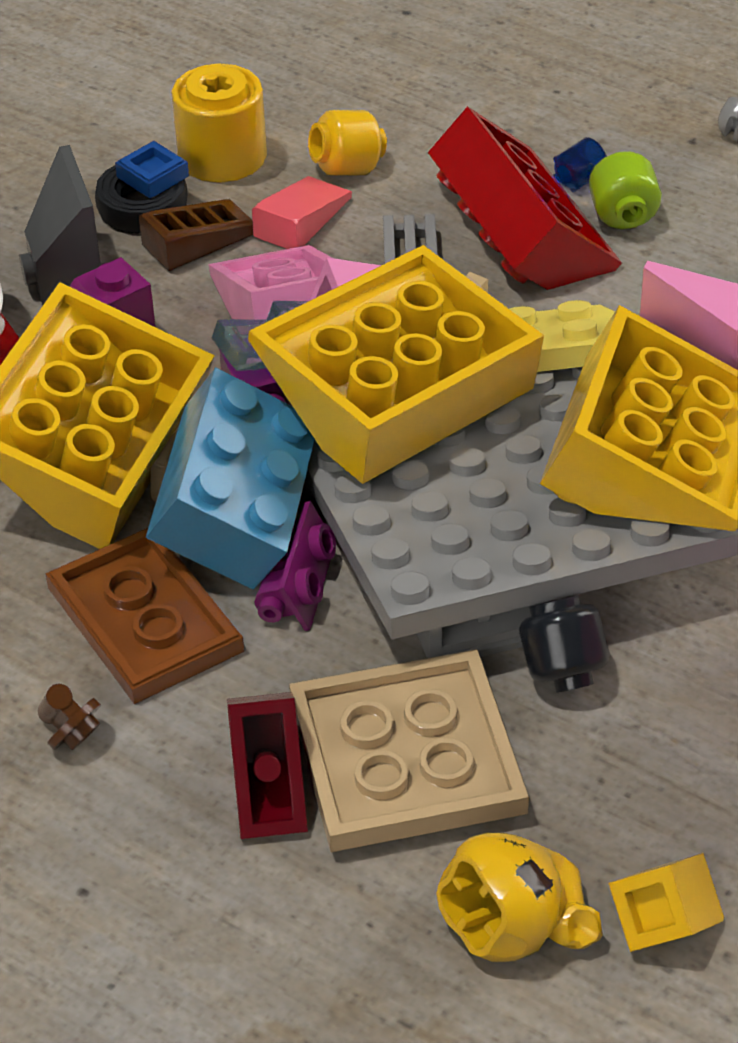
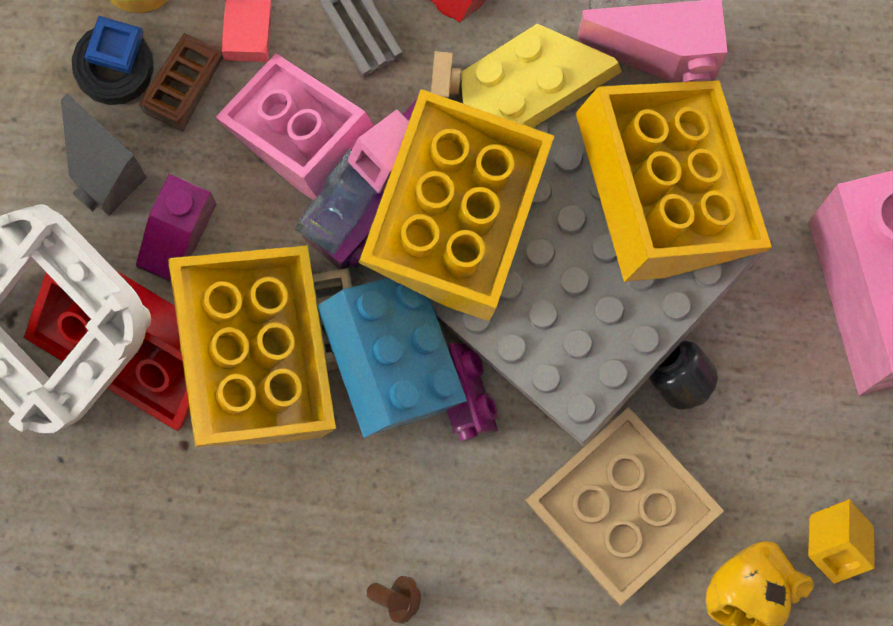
camera: 30 degrees left, 35 degrees up
(144, 615) = (382, 479): dark orange tile -> none
(267, 765) = (545, 566): dark red slope -> none

